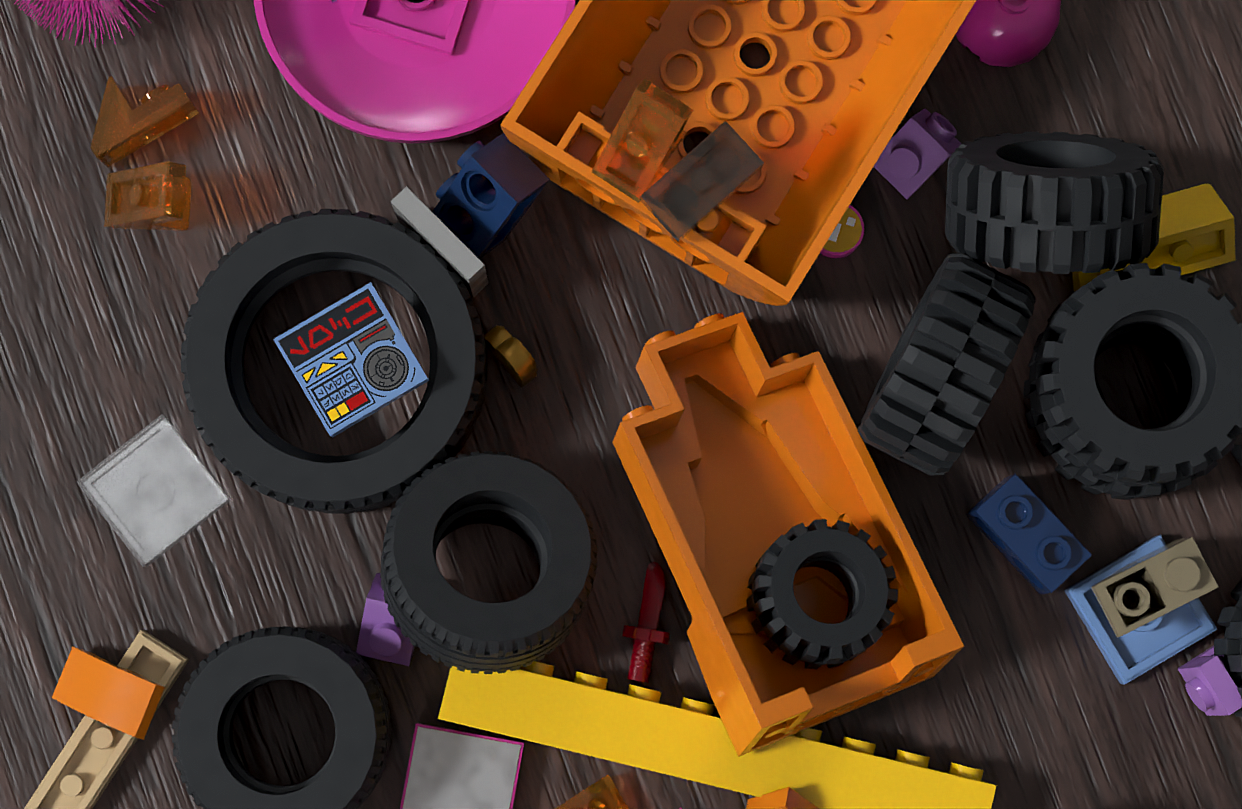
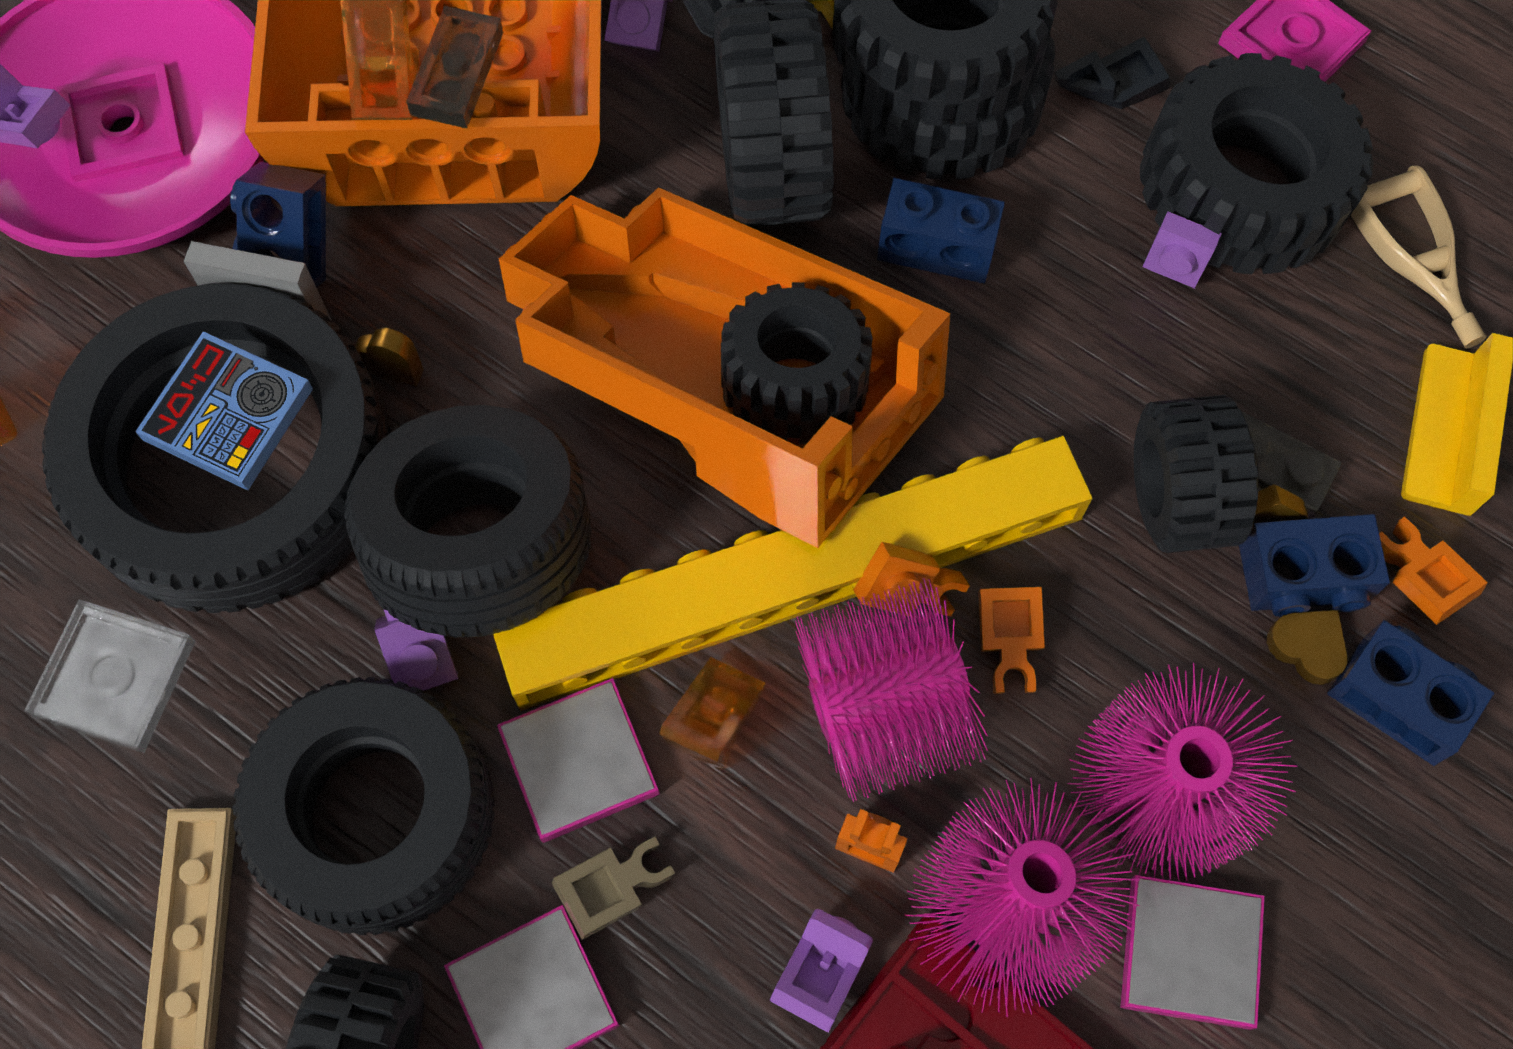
camera: 30 degrees left, 15 degrees down
(108, 693) = (164, 882): orange slope -> none
(646, 632) = (663, 514): dark red piece -> none
(845, 236) = (618, 106): pearl gold tile -> none
(1149, 644) = (1076, 242): medium blue tile -> none
(1154, 585) = (1076, 189): dark tan slope -> none

